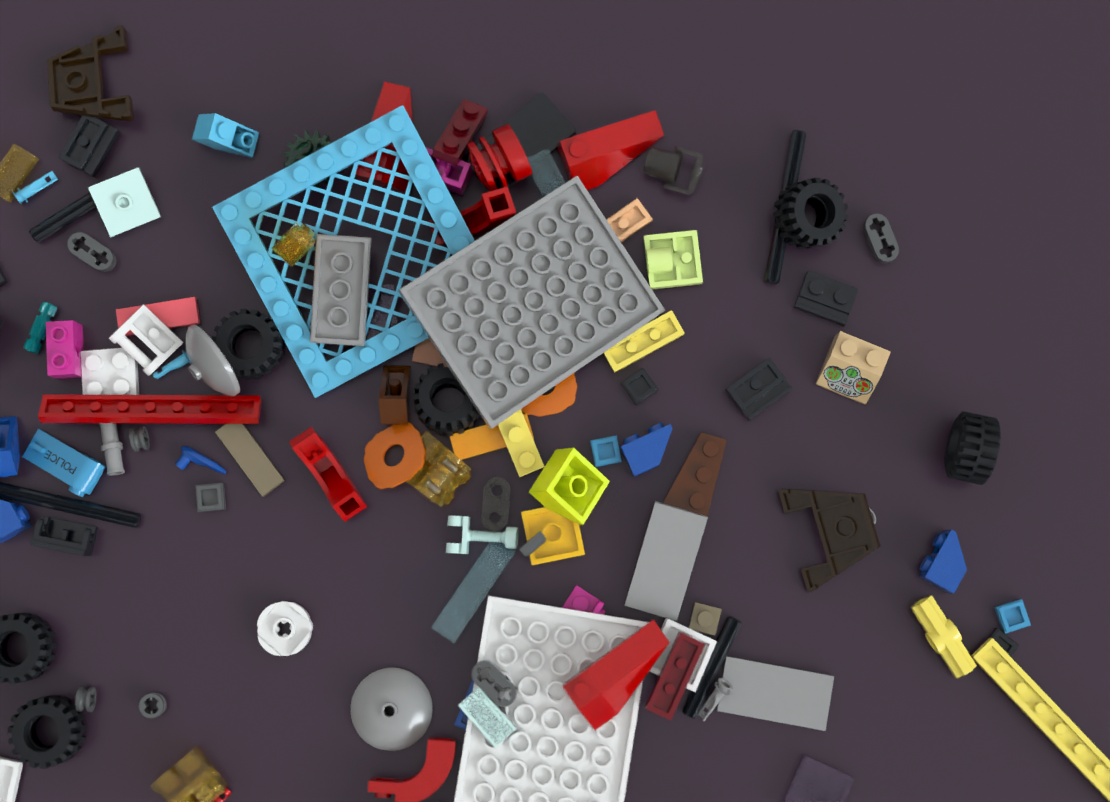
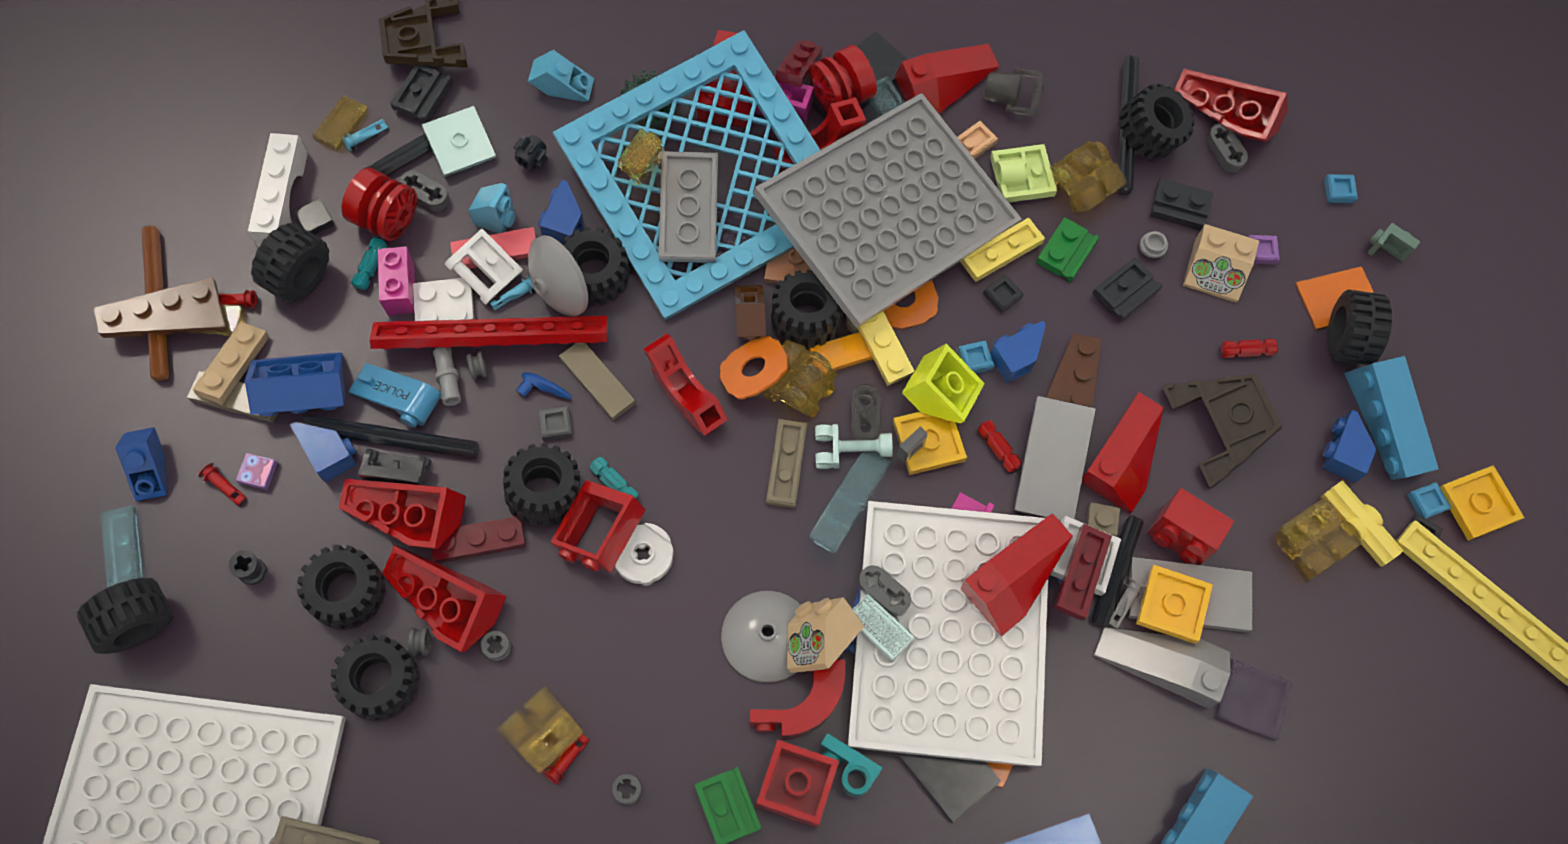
camera: 10 degrees left, 15 degrees down
(47, 272) = (379, 204): none -> red wheel
(79, 582) = (408, 512): none -> red wedge
(112, 663) = (450, 602): none -> red wedge
(138, 605) = (481, 540): none -> dark red plate
(156, 279) = (493, 208): none -> medium azure slope
(180, 544) = (541, 463): none -> black tyre
(193, 217) = (530, 152): none -> black gear
(223, 288) = (562, 215): none -> blue slope
(225, 598) = (579, 516): none -> red window
(261, 557) = (611, 477): none -> teal axle
(420, 547) = (786, 463): none -> dark tan tile
(433, 721) = (820, 634): none -> tan slope
(618, 541) = (999, 446): none -> red axle
(707, 342) = (1067, 249): none -> green plate
(733, 268) = (1087, 175): none -> clear yellow hips
(735, 558) = (1125, 460): none -> red wedge
(753, 755) = (1179, 666): none -> light grey wedge
(756, 706) = (1174, 604): none -> yellow plate
(779, 636) = (1190, 527): none -> red brick
(791, 342) = (1154, 244): none -> light grey plate
(867, 455) = (1249, 348): none -> red axle
(897, 198) = (1236, 105): none -> red wedge
(898, 651) = (1316, 539): none -> clear yellow hips
(901, 350) = (1267, 249): none -> medium lavender tile
(971, 395) = (1323, 292): none -> orange window
(988, 288) = (1340, 188): none -> dark azure tile
(991, 537) = (1393, 417): none -> dark azure wedge
(1031, 350) = (1395, 241): none -> sand green bracket
(1059, 622) = (1481, 503): none -> yellow plate

